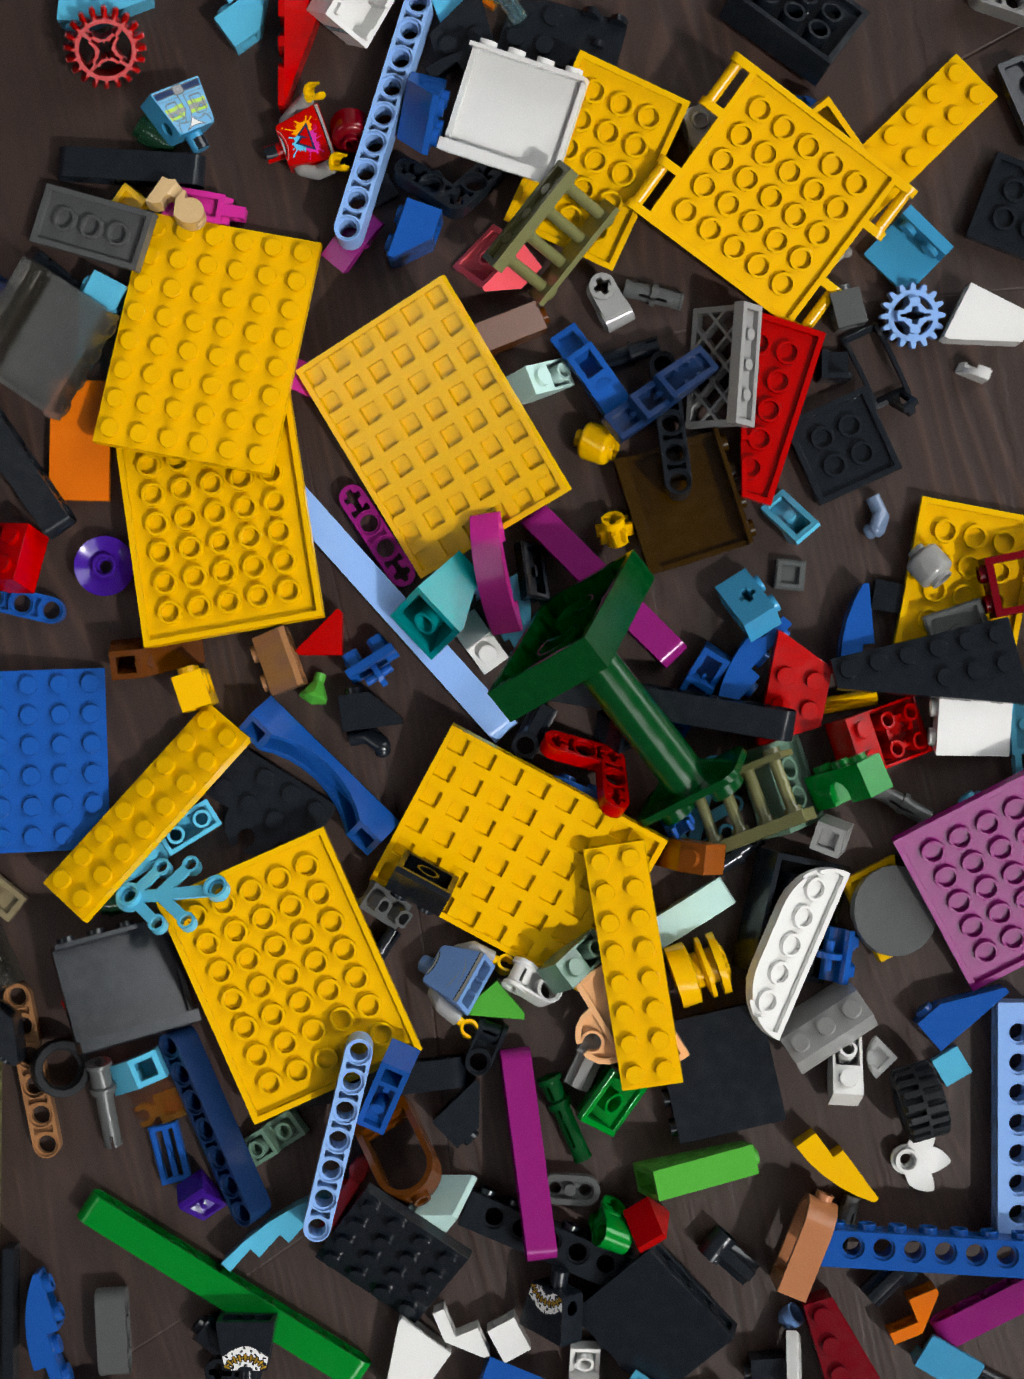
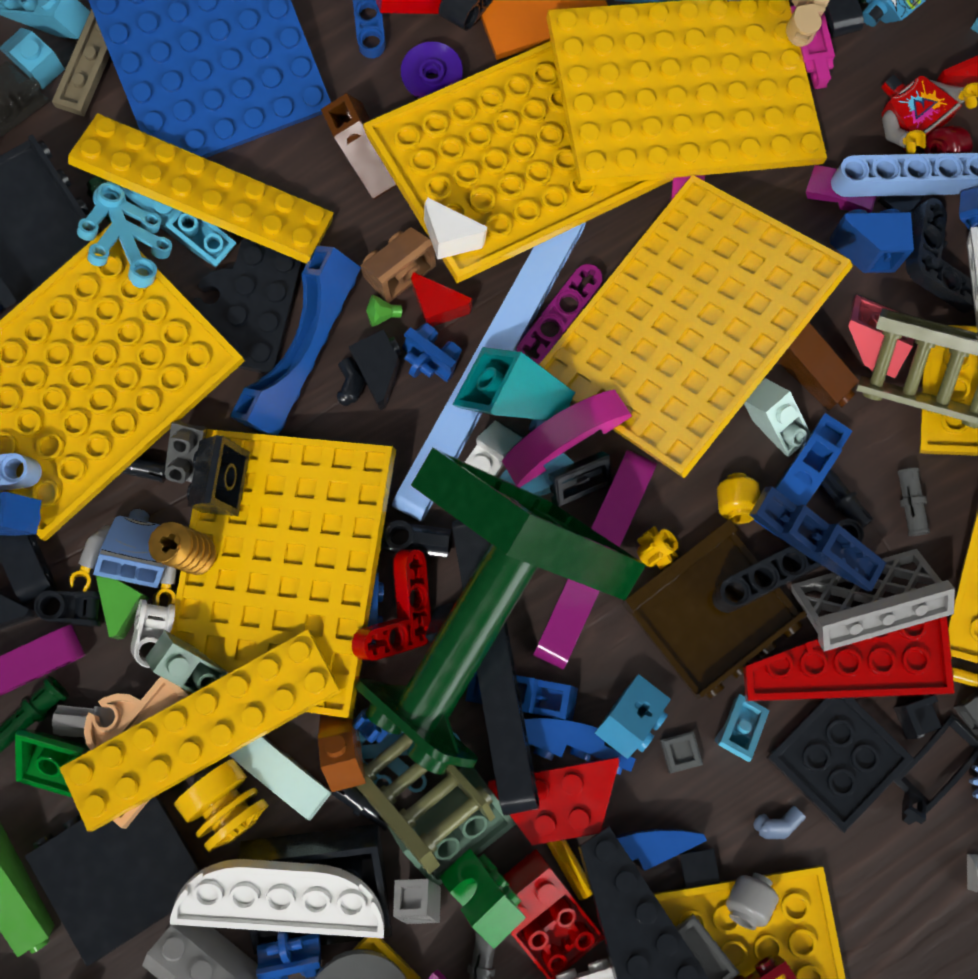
camera: 70 degrees right, 10 degrees down
(194, 688) = (340, 189): yellow brick -> none
(281, 607) = (451, 231): none -> white slope
(474, 932) = (182, 548): none -> pearl gold piece
(612, 307) = (884, 461): light grey piece -> none

